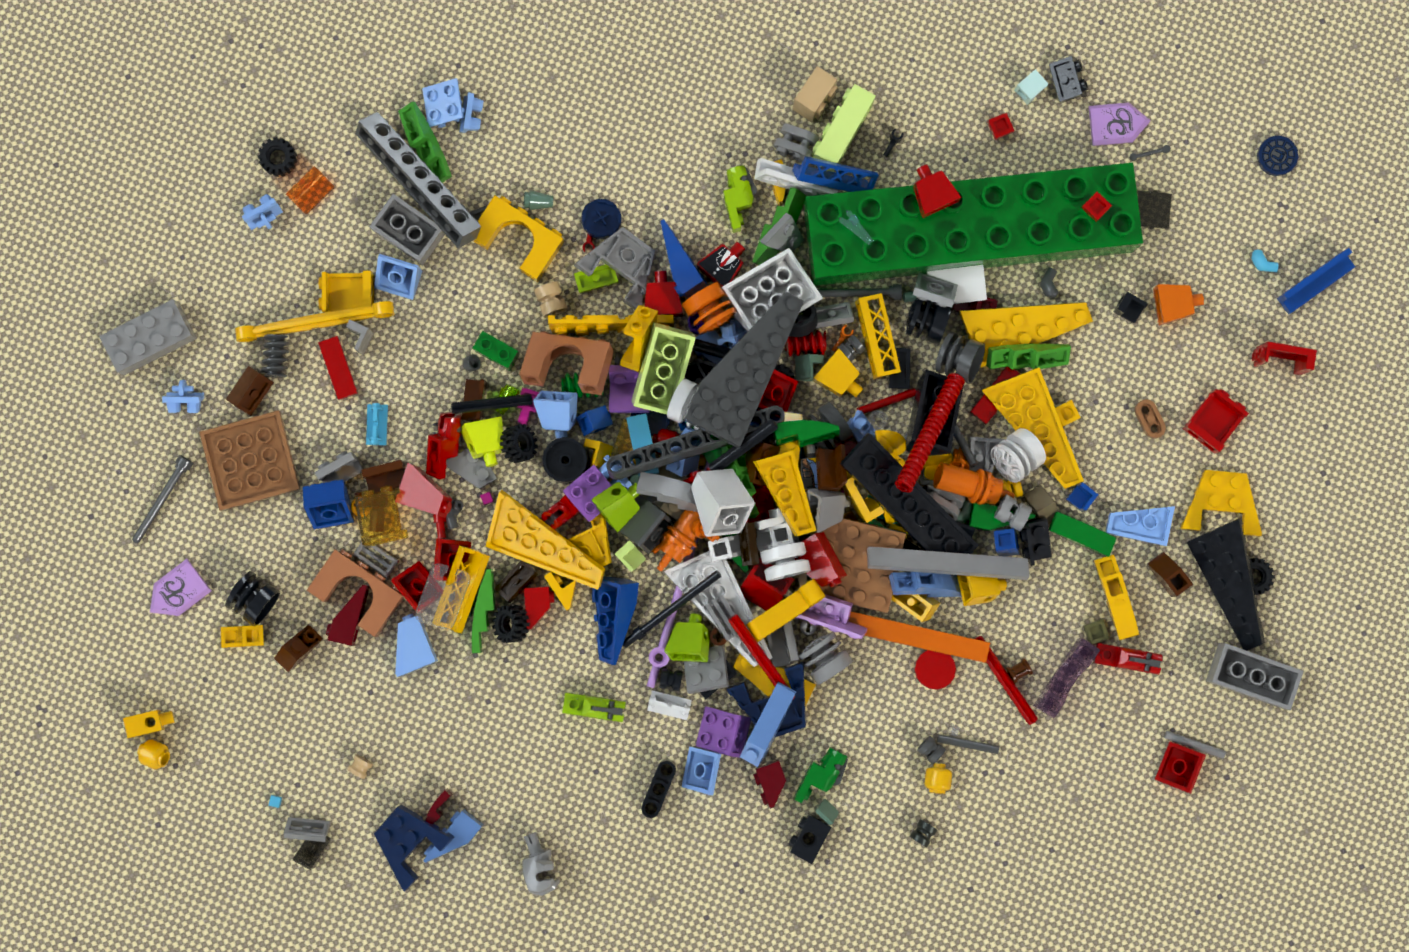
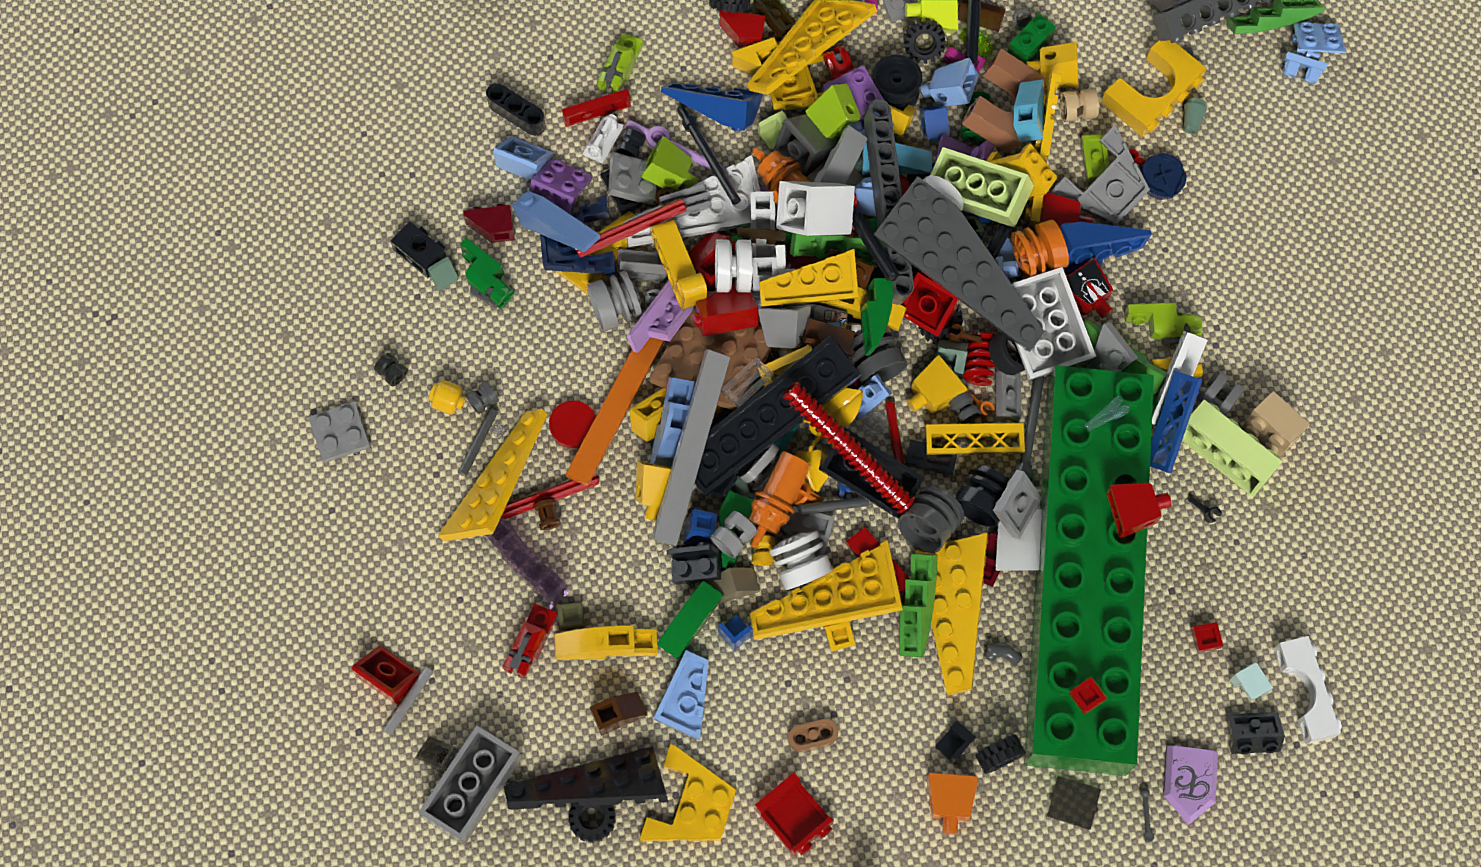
camera: 105 degrees right, 15 degrees down
(518, 317) = (1060, 60): none -> yellow torso
(579, 338) = (1029, 111): none -> medium azure slope
(643, 719) = (596, 108): none -> red tile
(793, 358) = (962, 334): none -> reddish brown hand
(899, 537) = (733, 396): none -> clear tile
(985, 862) = (339, 432): none -> light grey plate
(1019, 721) = (489, 495): none -> yellow wing
(1048, 32) = (1299, 659): none -> white arch
(1135, 270) = (1000, 754): none -> black tyre
(1234, 708) = (437, 754): none -> clear smoke slope

